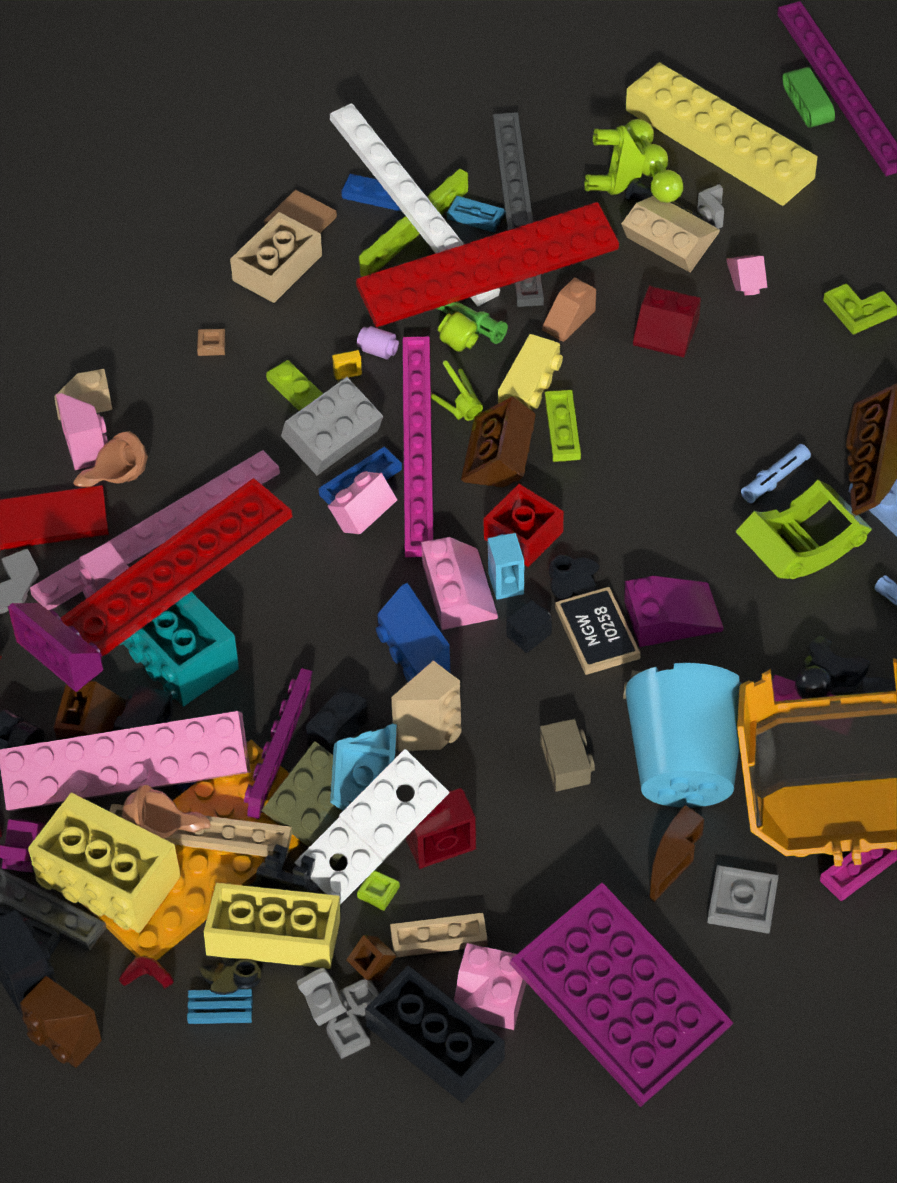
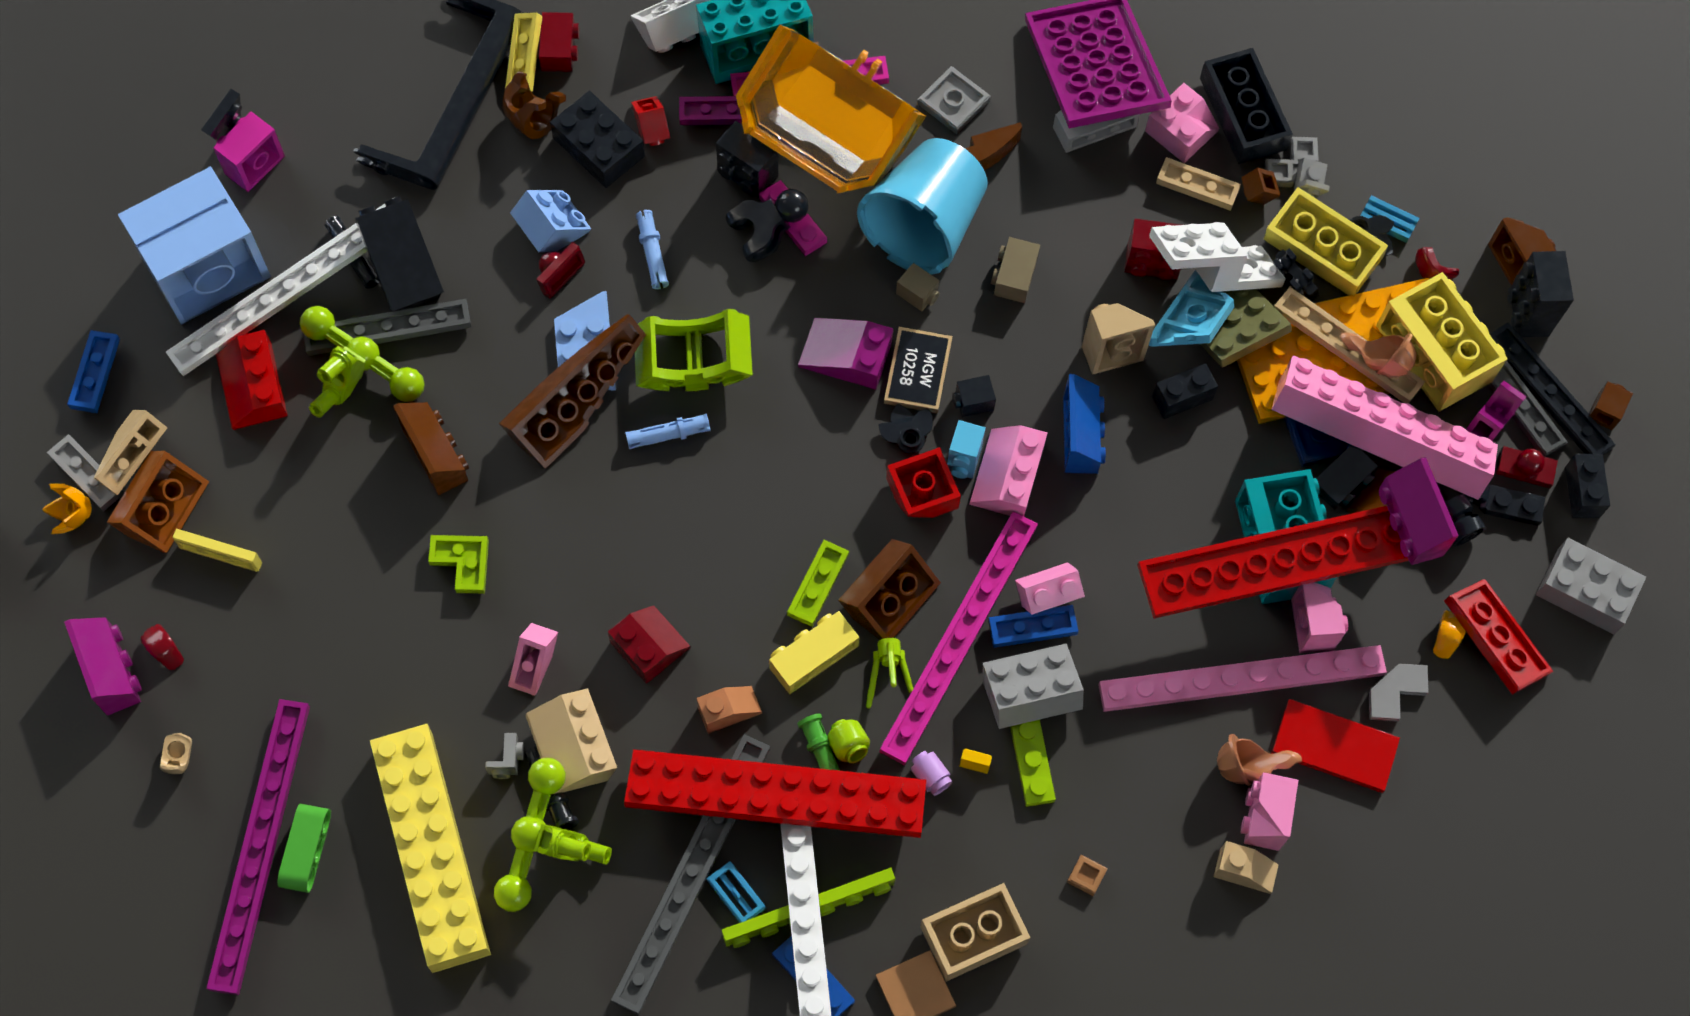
camera: 155 degrees left, 15 degrees up
(275, 750) = (1238, 396): magenta plate -> none

